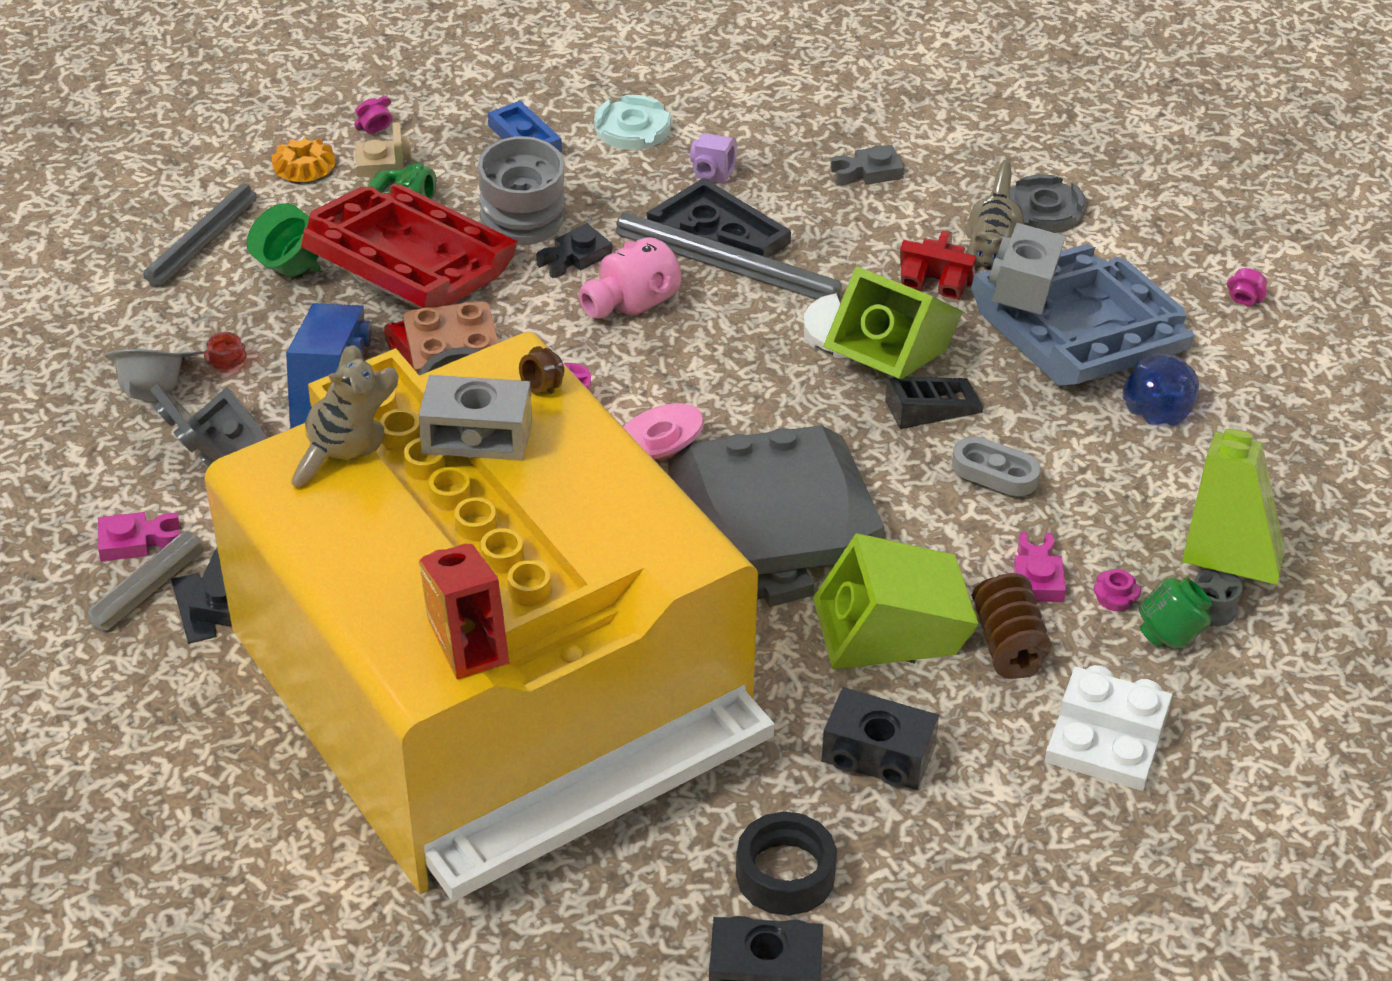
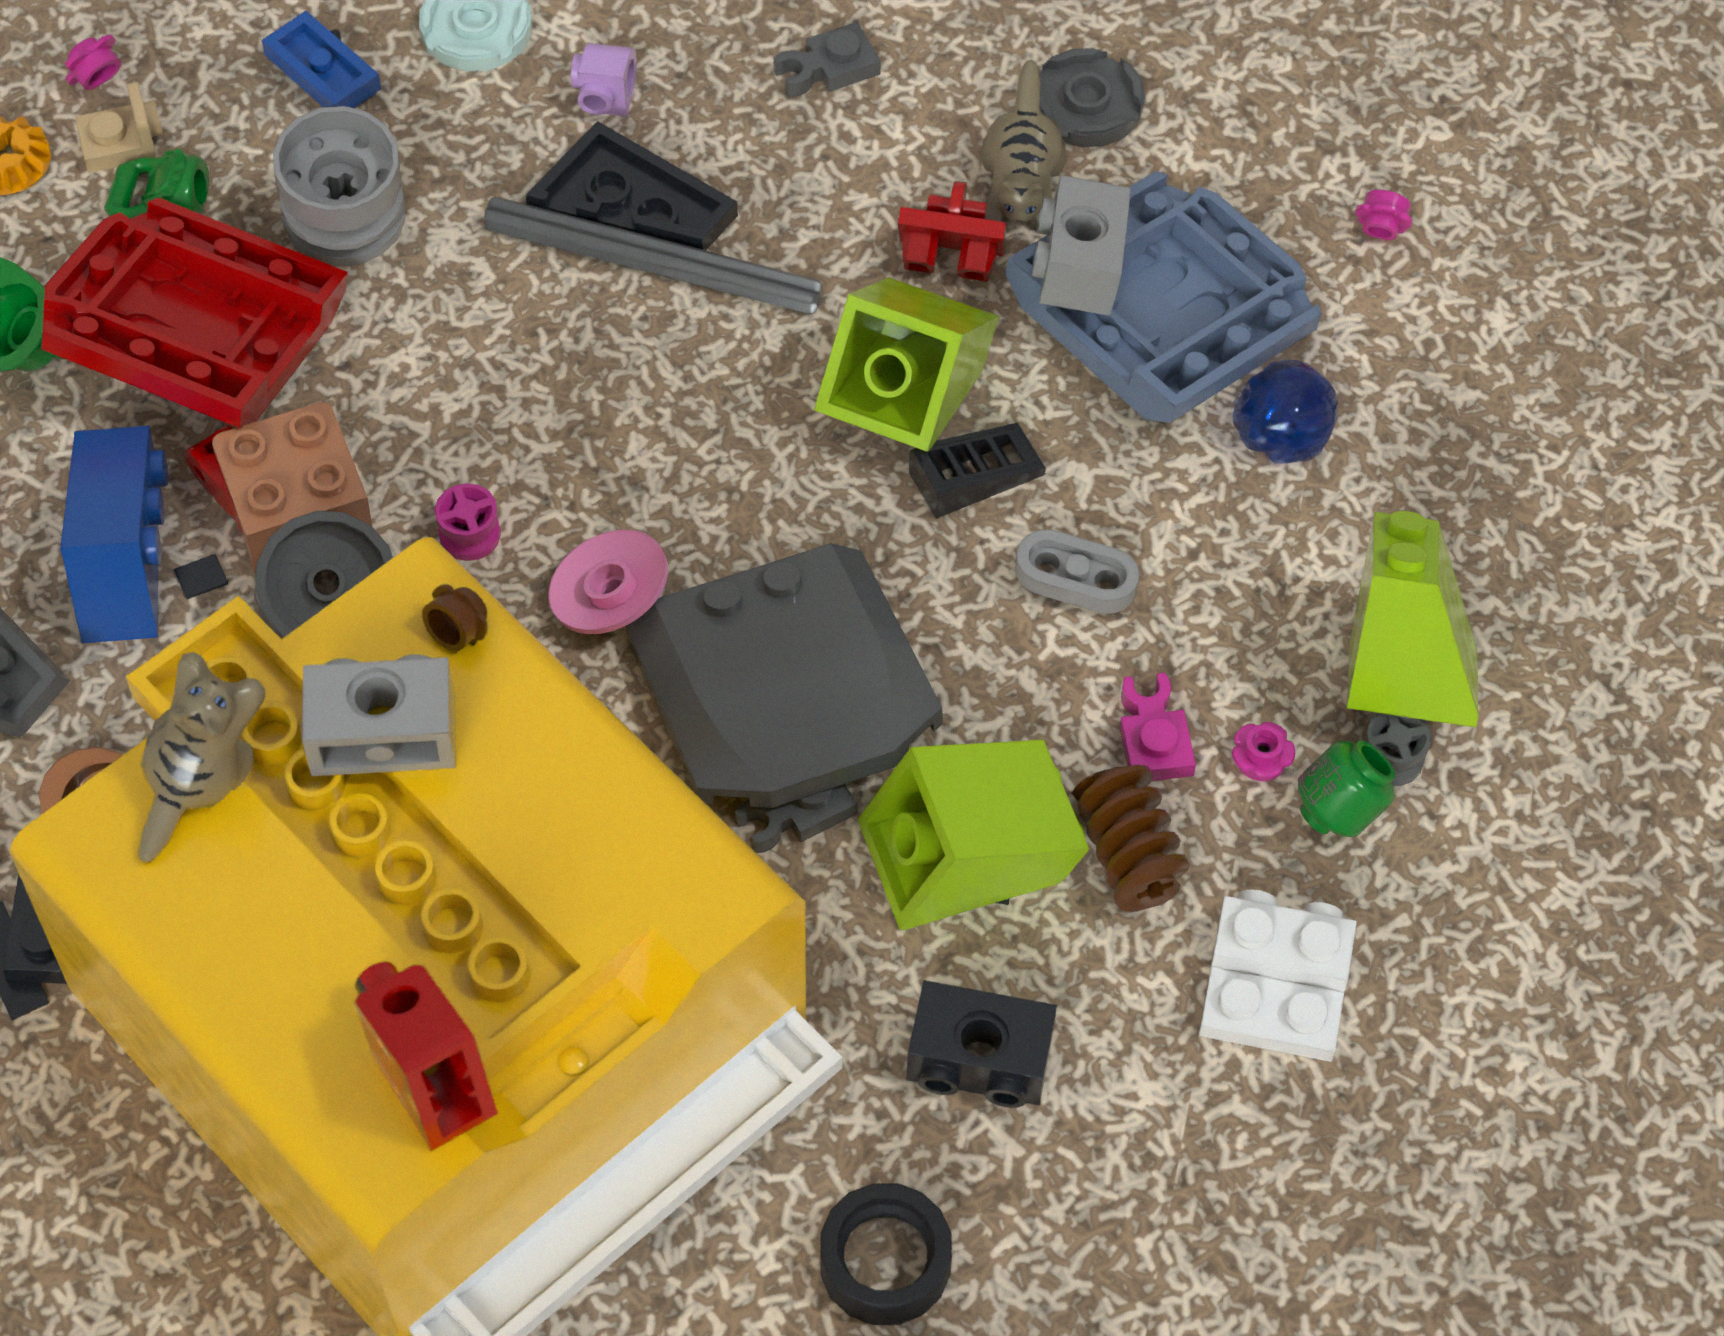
camera: 10 degrees left, 15 degrees up
(577, 248) = (434, 264): black plate -> none
(632, 279) = (525, 321): bright pink piece -> none
(819, 319) = (804, 350): white tile -> none

